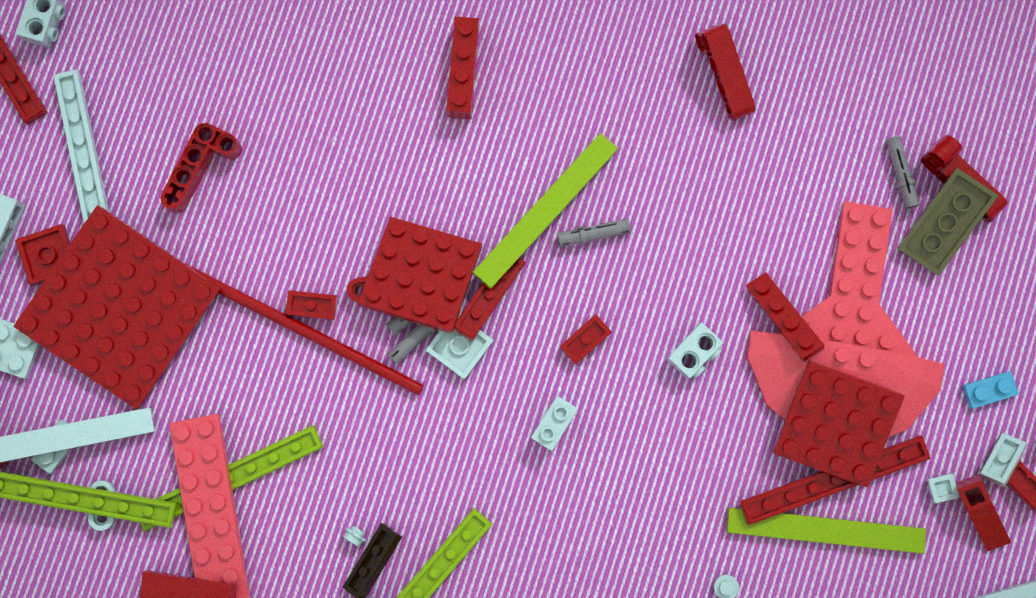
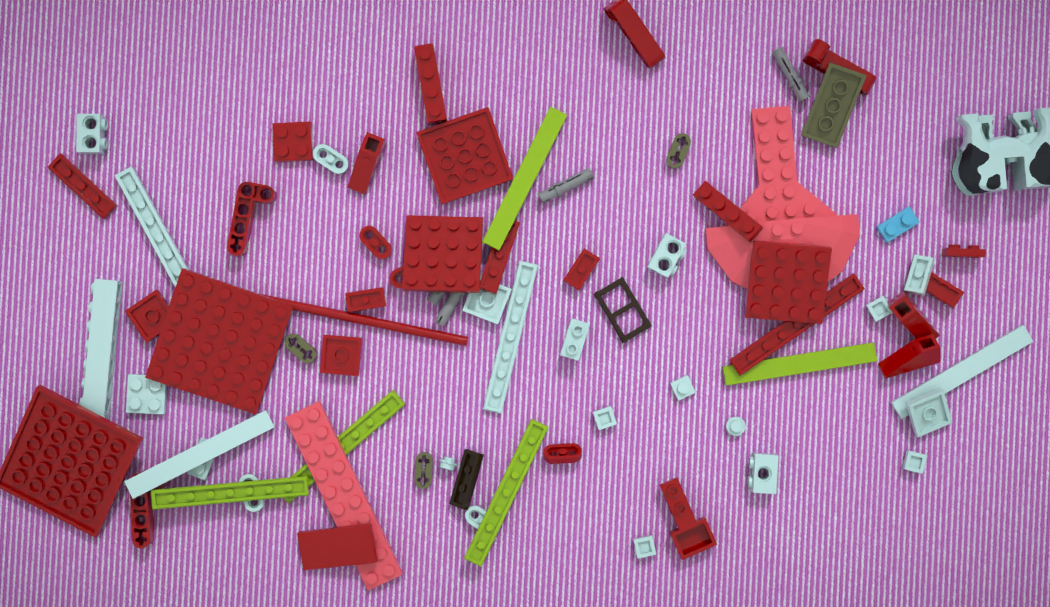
camera: 20 degrees left, 5 degrees up
(210, 346) = (297, 351): none -> olive beam
(261, 365) = (341, 355): none -> red plate
(278, 92) = (292, 141): none -> red plate
(317, 534) = (428, 471): none -> olive beam
(319, 125) = (331, 159): none -> light aqua plate
(344, 239) = (376, 242): none -> red plate
(360, 139) = (366, 162): none -> red slope
(475, 399) = (510, 337): none -> light aqua tile
(480, 164) = (464, 155): none -> red plate
(500, 562) = (562, 453): none -> red plate
(565, 531) = (604, 418): none -> light aqua plate
(597, 376) = (624, 338): none -> dark brown window
(672, 520) = (682, 387): none -> light aqua plate
(746, 231) = (682, 153): none -> olive beam
(970, 560) = (912, 356): none -> red slope

